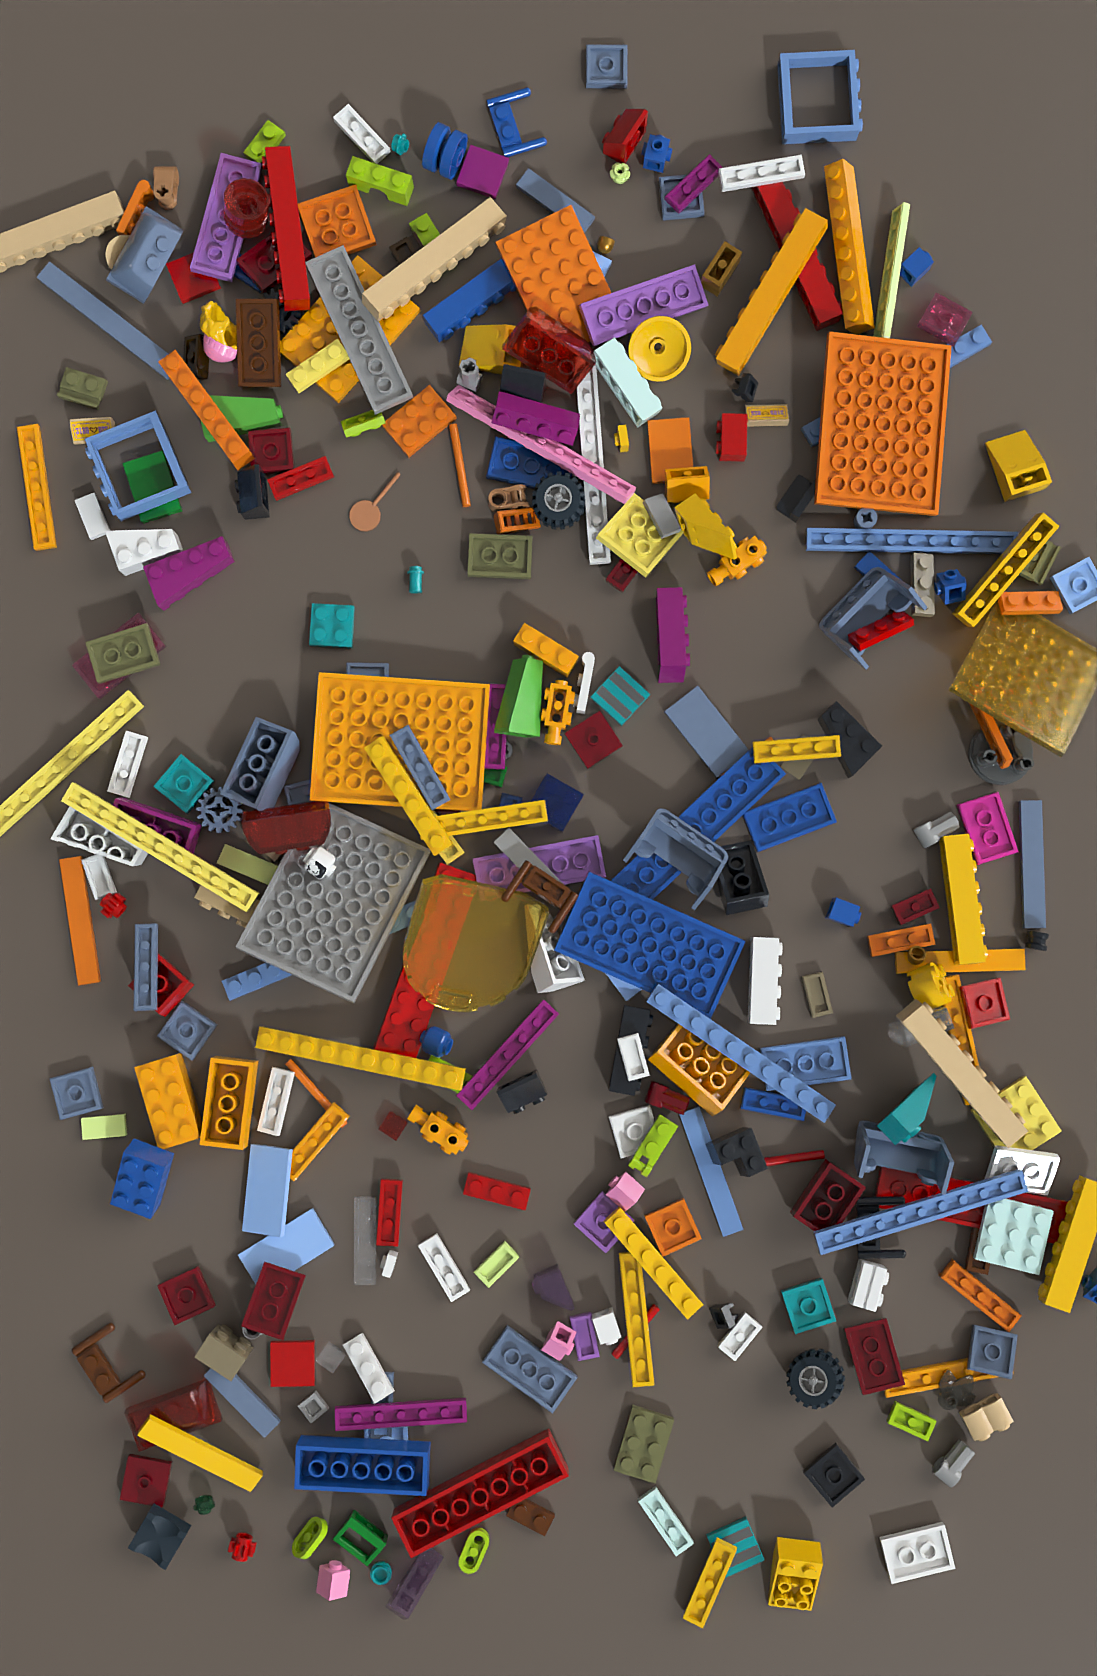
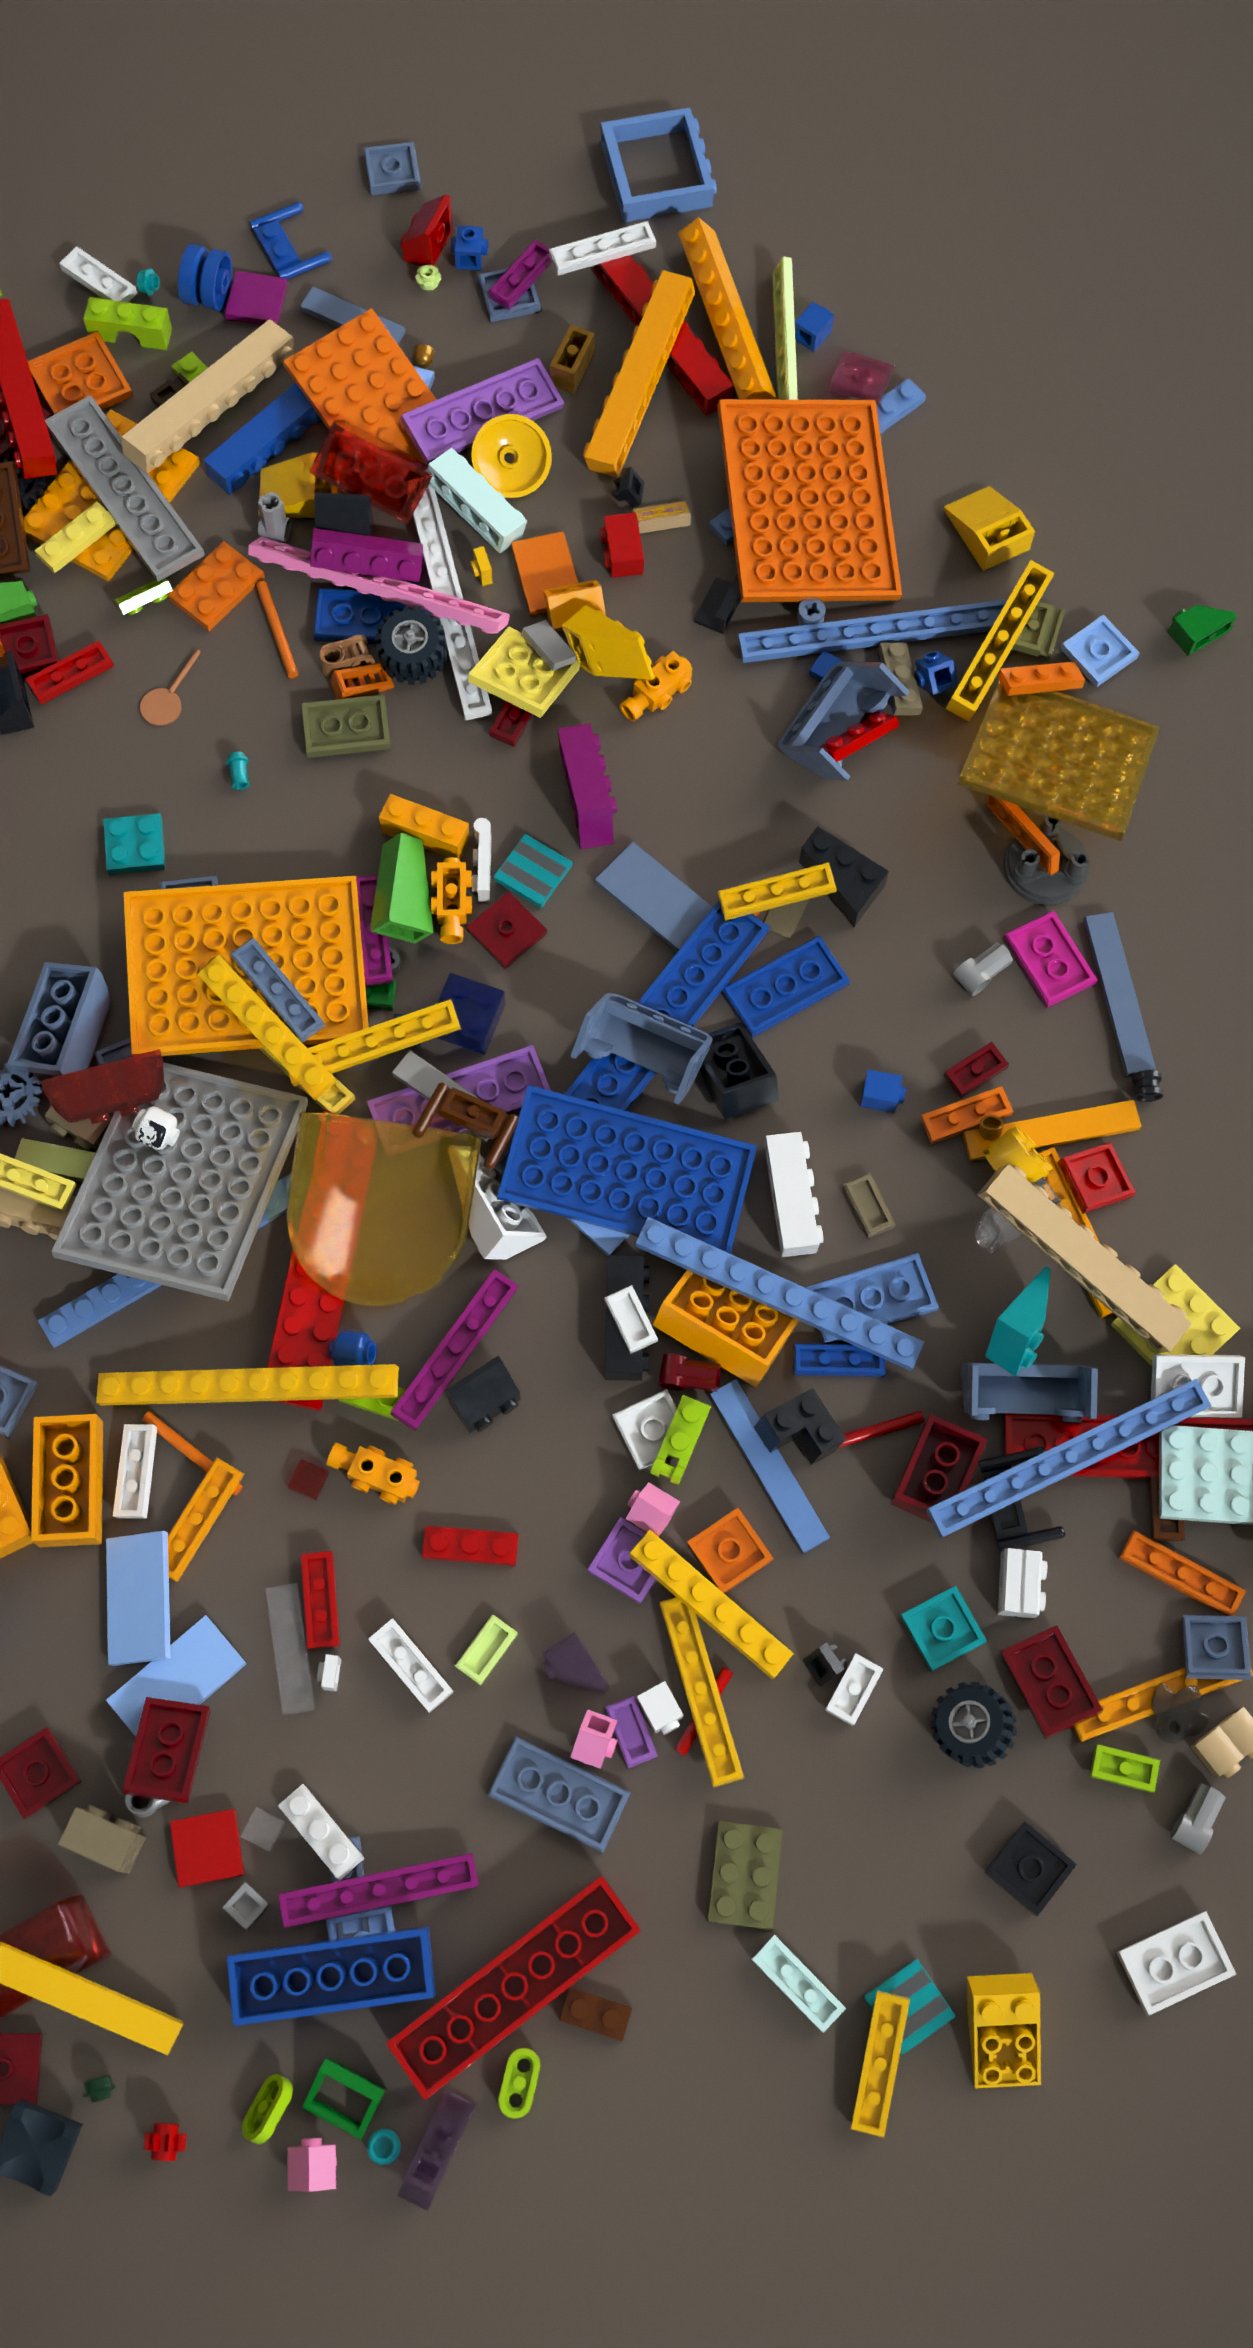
camera: 15 degrees left, 15 degrees down
(245, 1402) = (137, 1914): sand blue tile -> none
(962, 899) = (1037, 1048): yellow brick -> none

